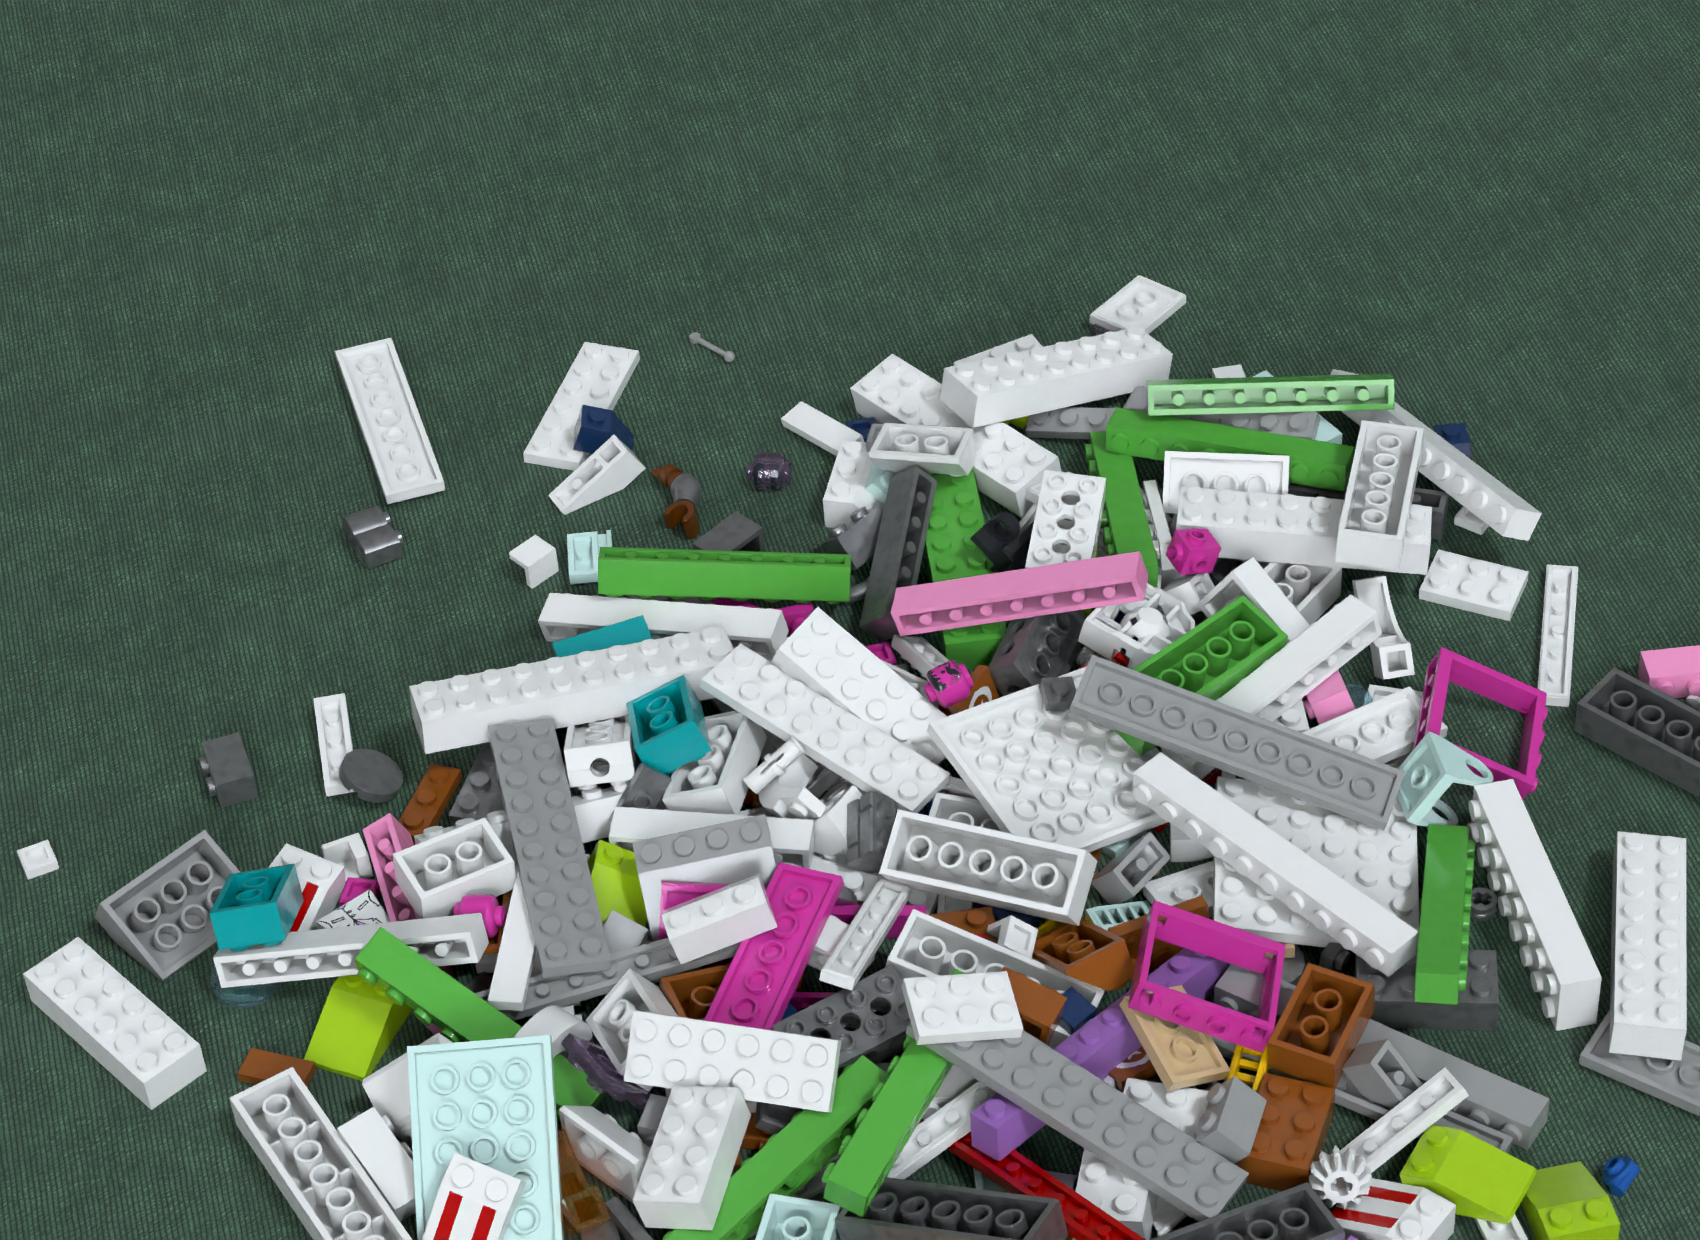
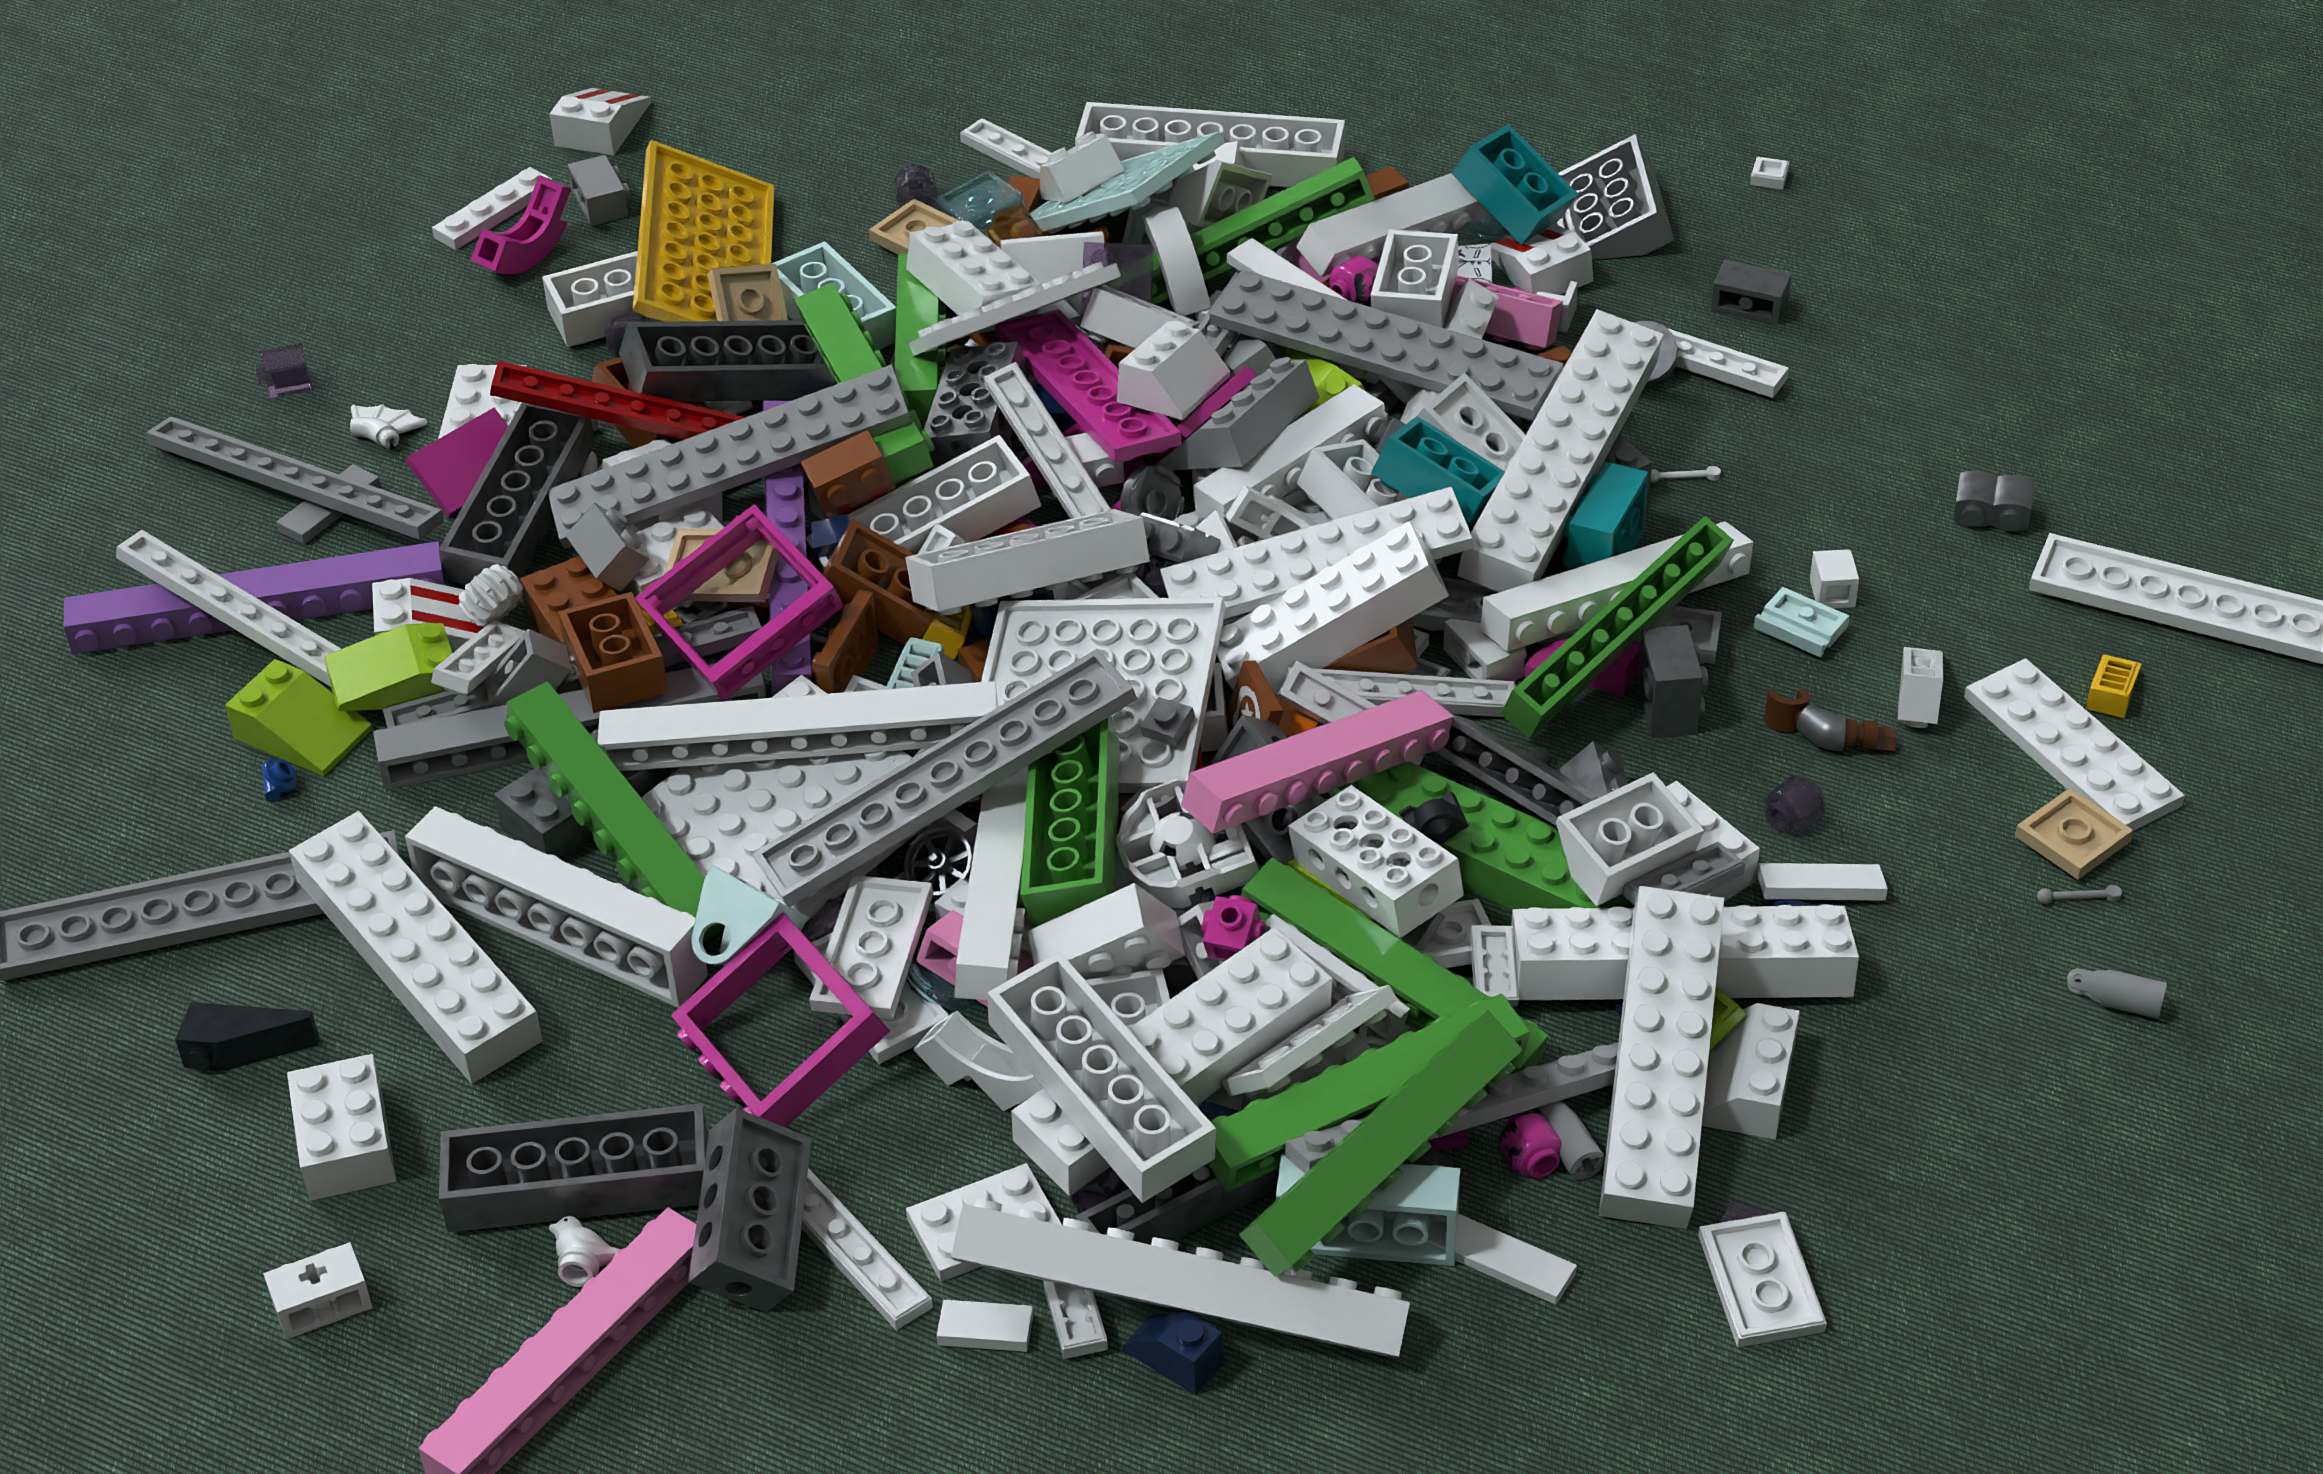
camera: 130 degrees right, 0 degrees up
(115, 1023) = (1554, 123): white brick -> none
(513, 412) = (2113, 686): none -> yellow slope
(596, 427) = (1978, 705): dark blue slope -> none
(667, 364) = (2074, 833): none -> tan plate
(774, 764) = (1316, 512): white pin -> none
(779, 290) = (2119, 990): none -> light grey piece
(948, 684) = (1270, 658): dark pink head -> none
(962, 1007) = (864, 395): white plate -> none
(1541, 545) = (985, 1325): none -> white tile
(1610, 634) = (750, 1210): none -> flat silver brick

